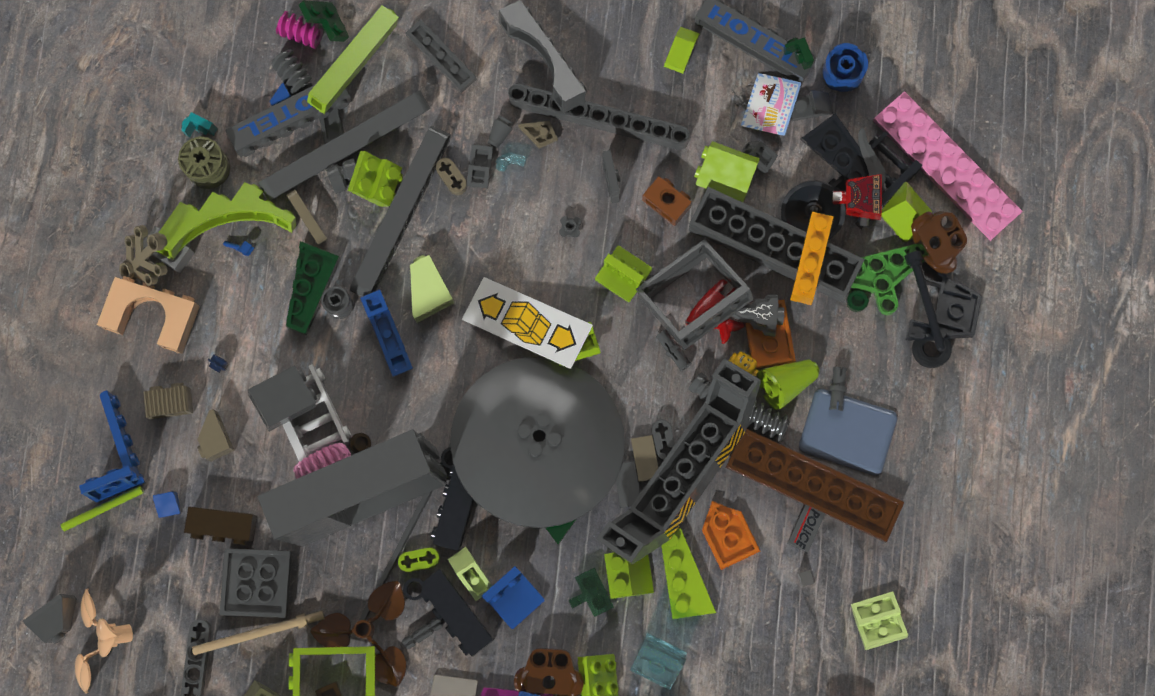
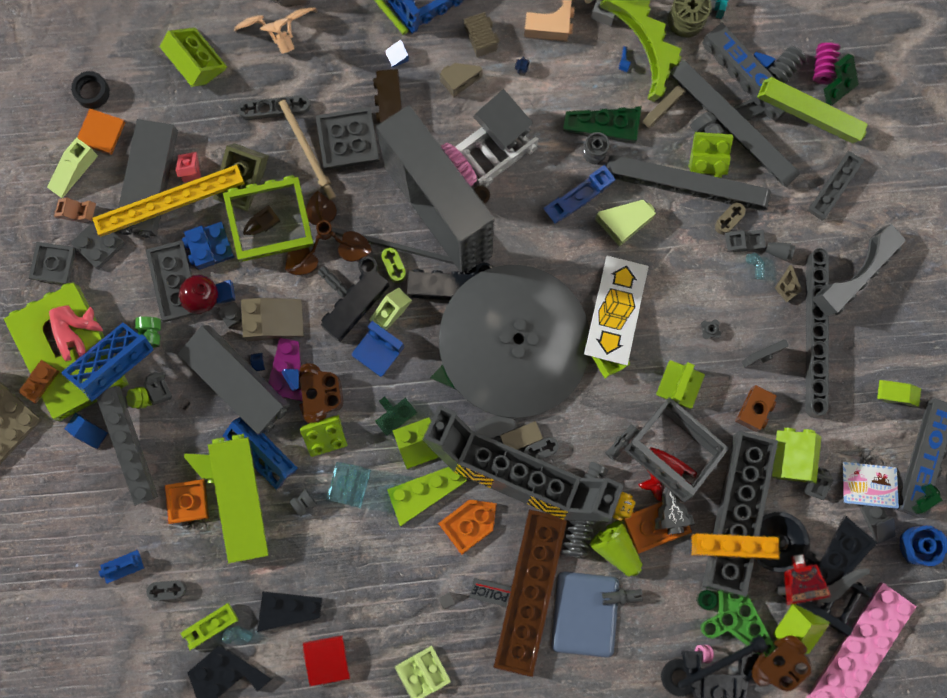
camera: 70 degrees right, 0 degrees up
(912, 313) = (707, 653): none -> bright pink bush

